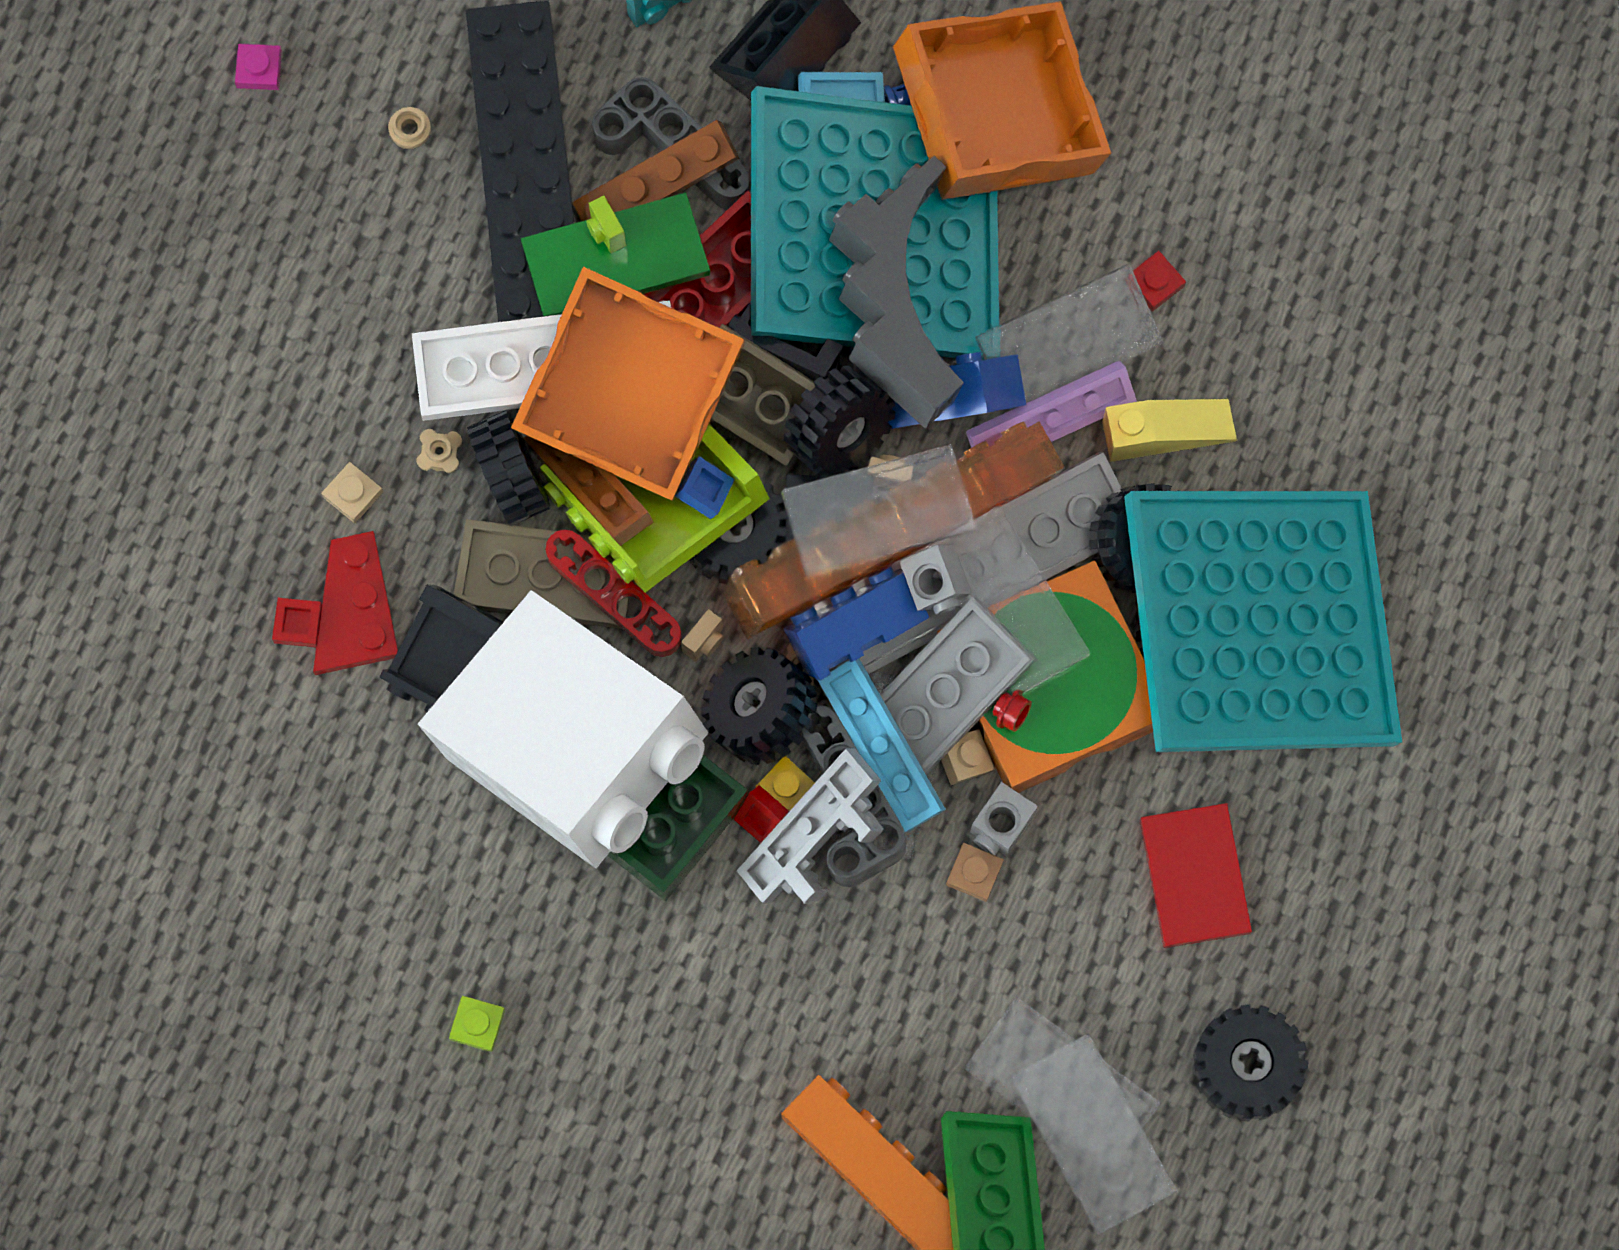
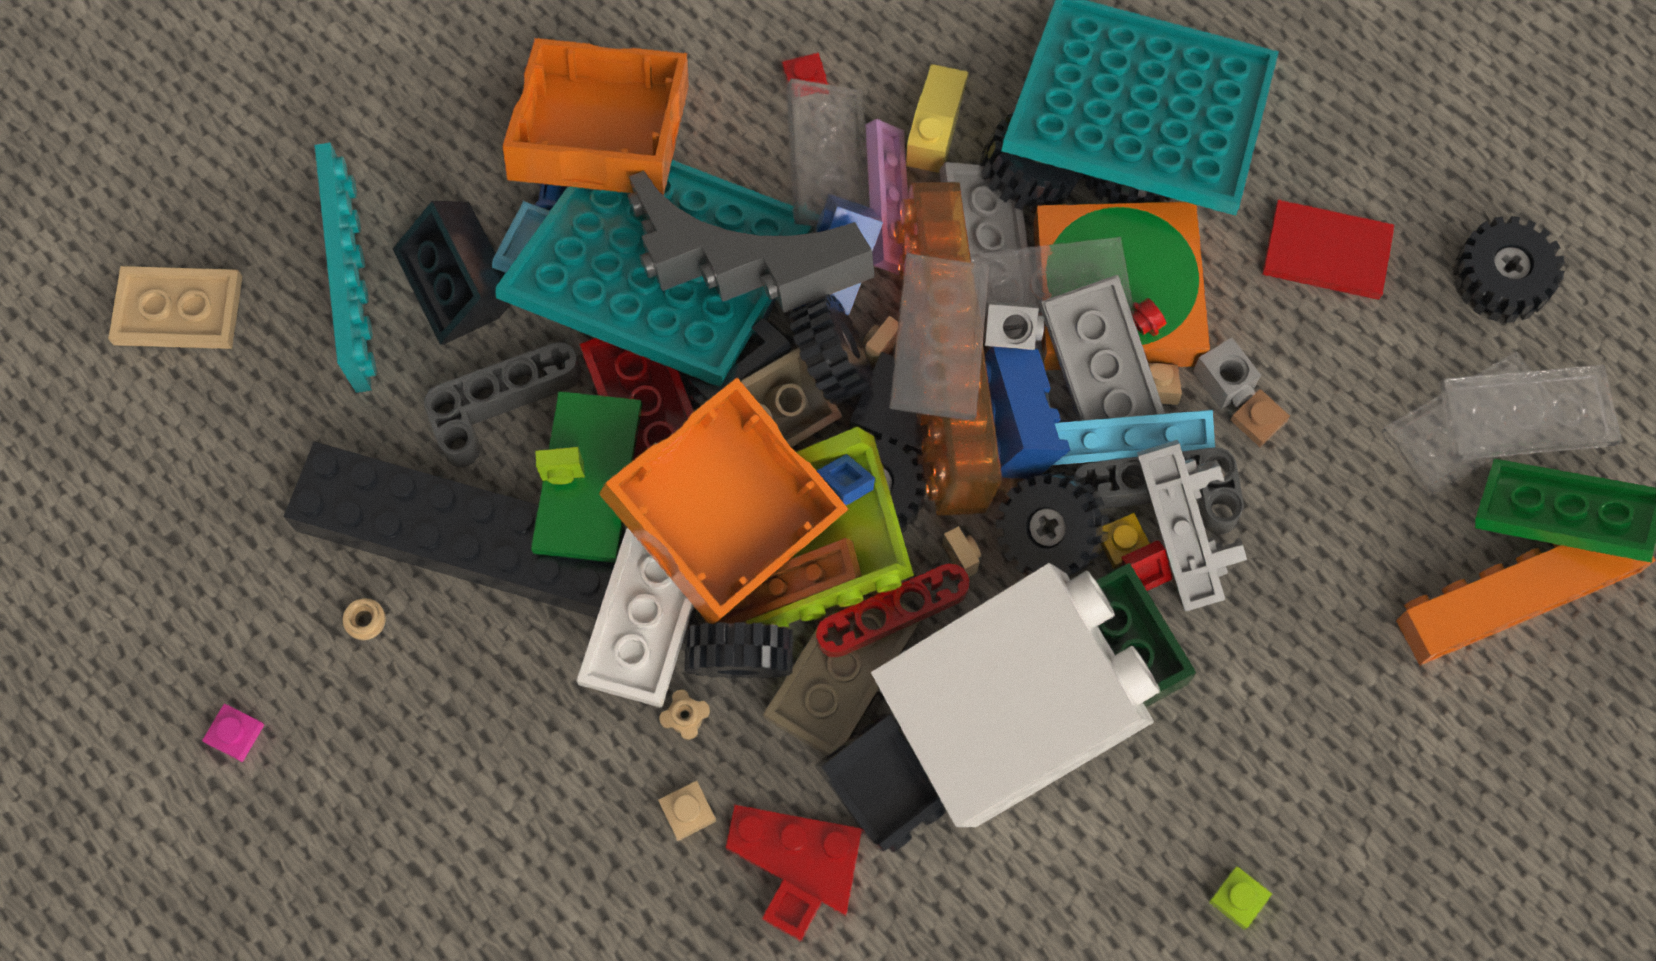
camera: 65 degrees left, 5 degrees down
(666, 172) = (525, 415): dark orange plate -> none

